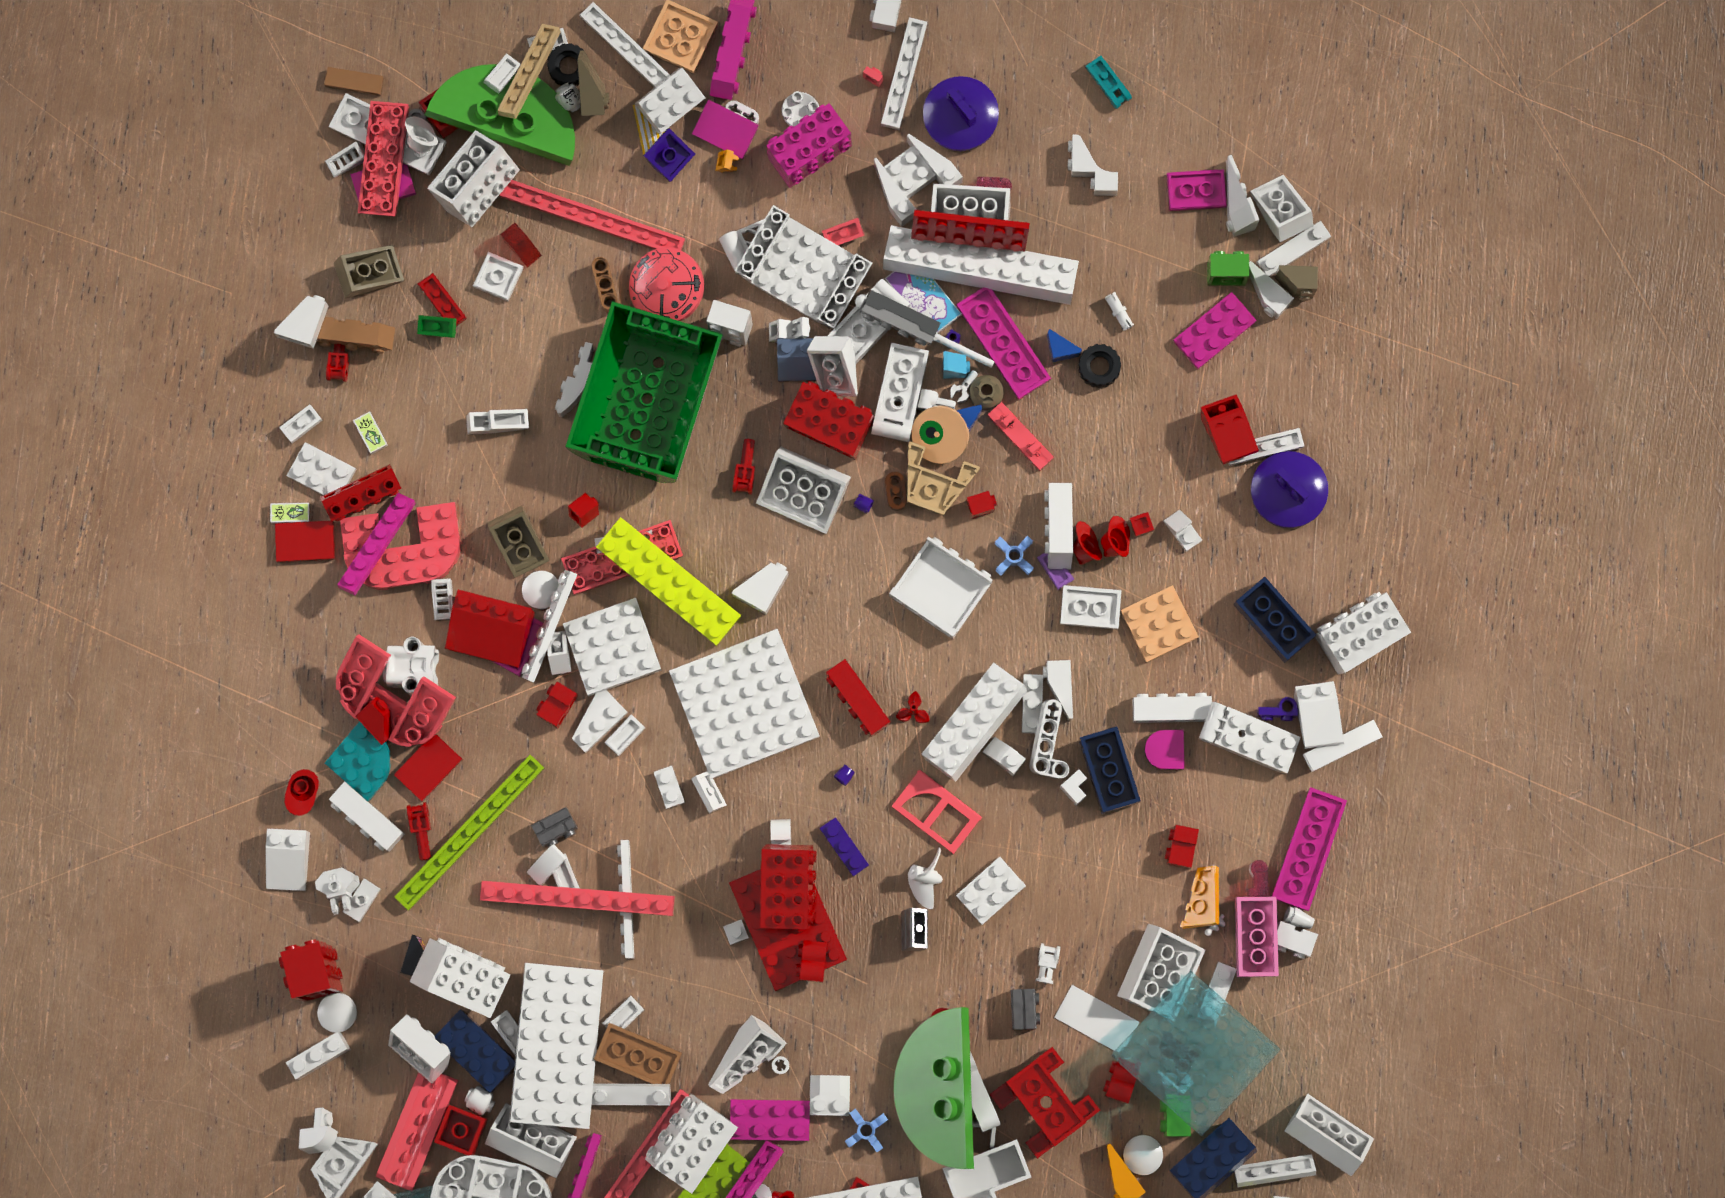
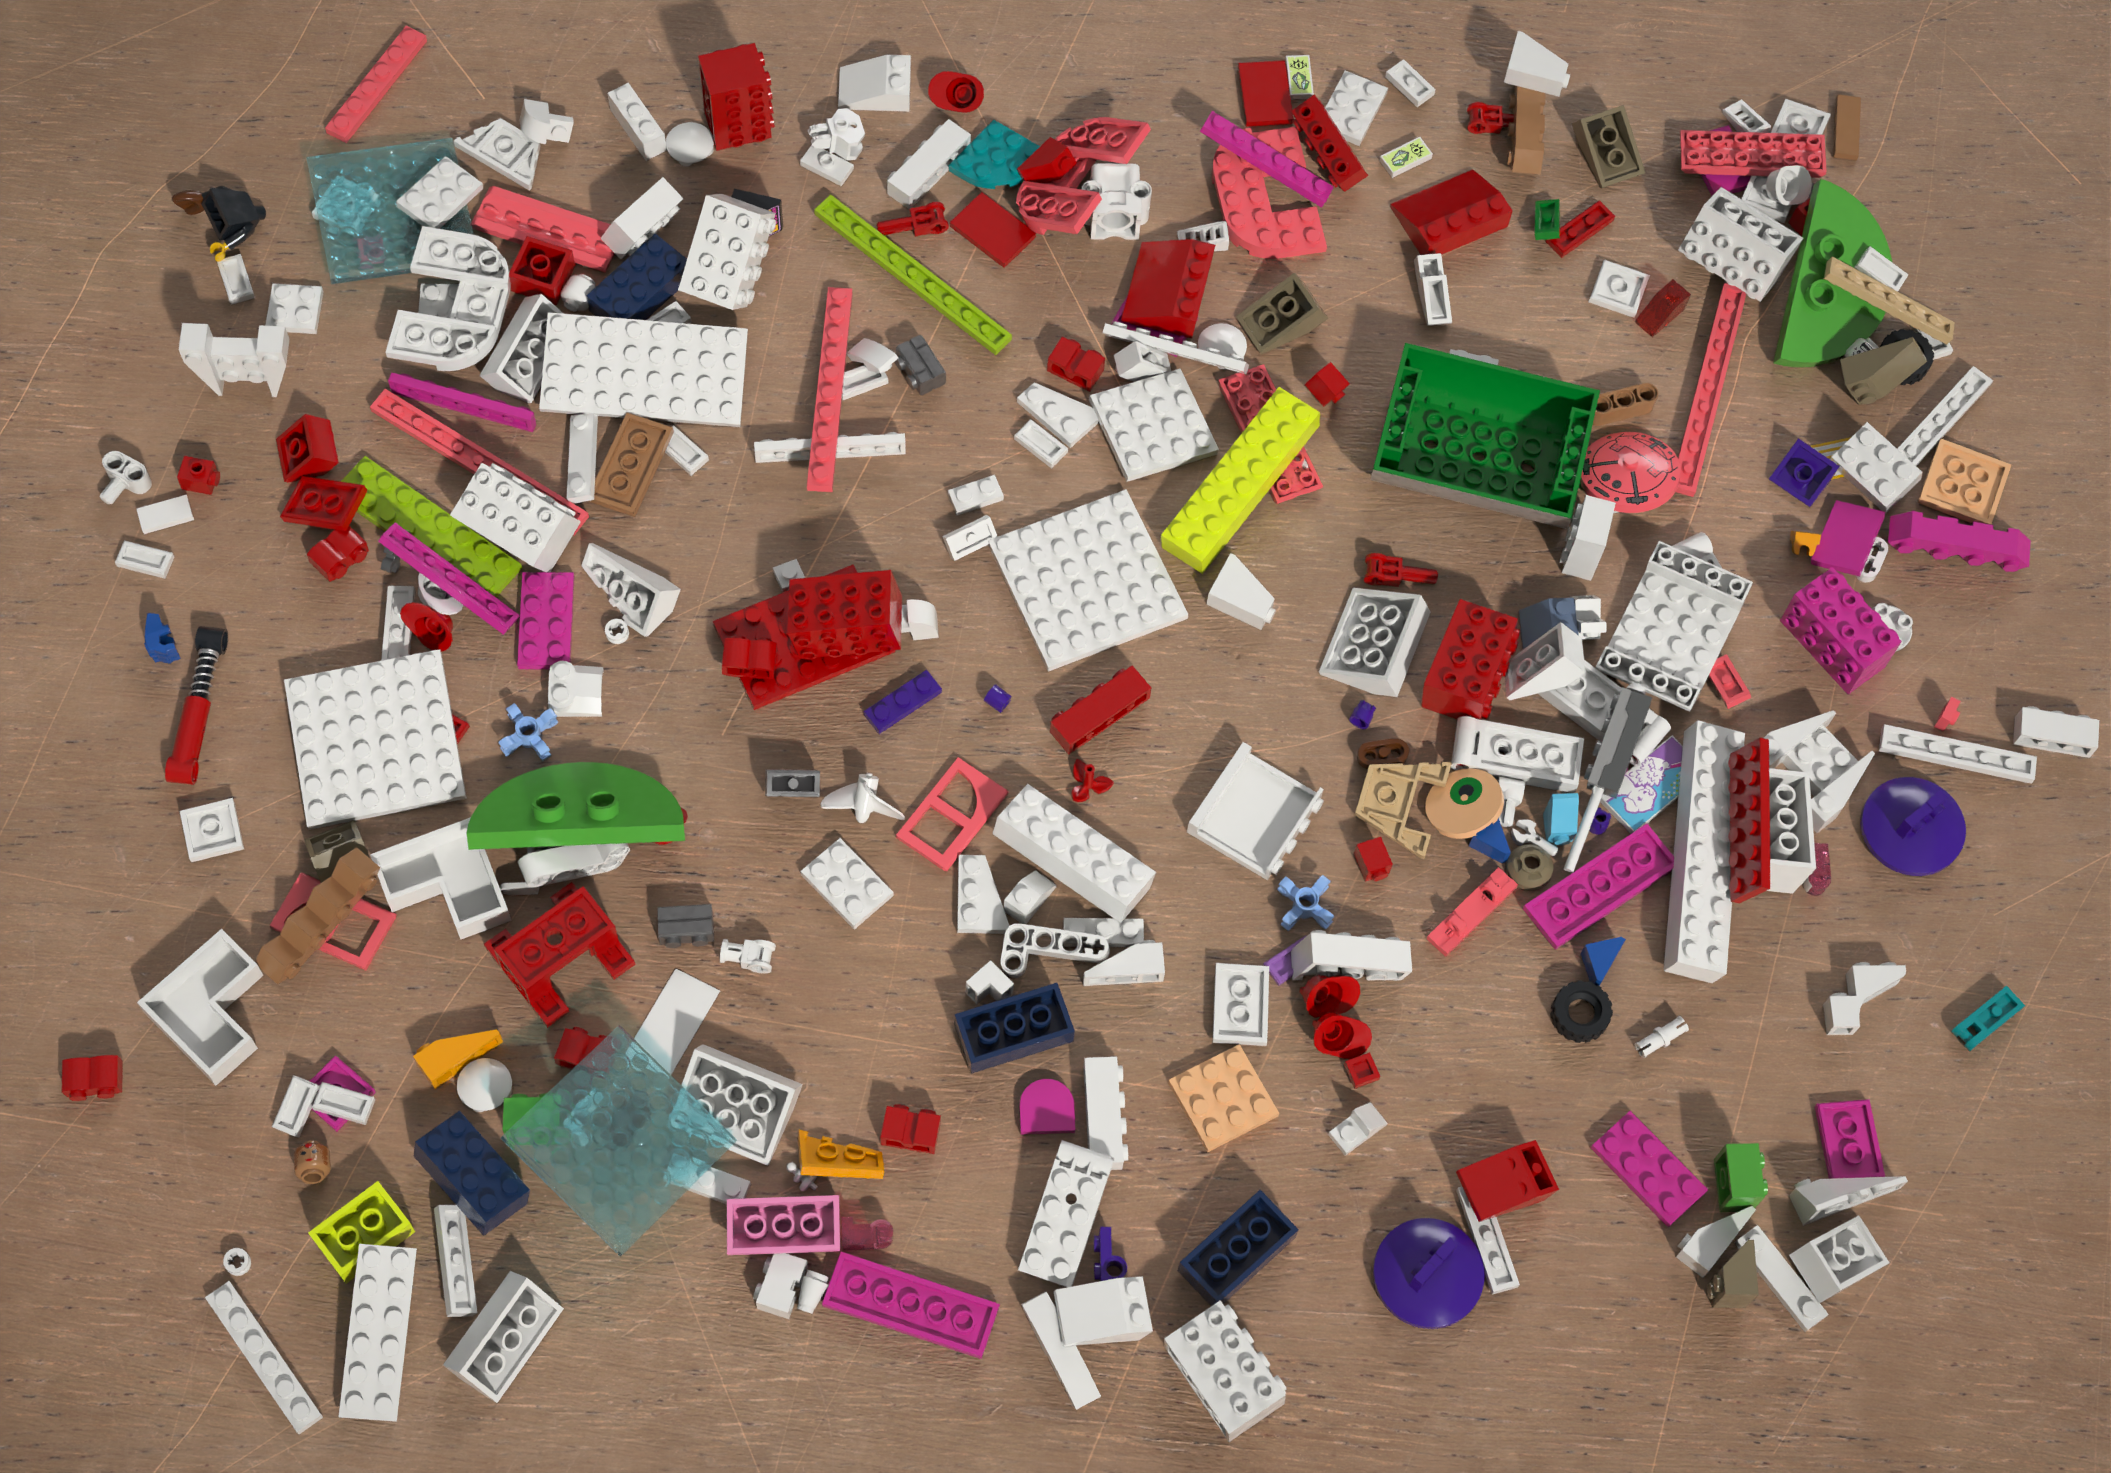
camera: 80 degrees right, 15 degrees down
(424, 401) = (1452, 213): none -> red slope
(1004, 794) = (978, 898): none -> white wing

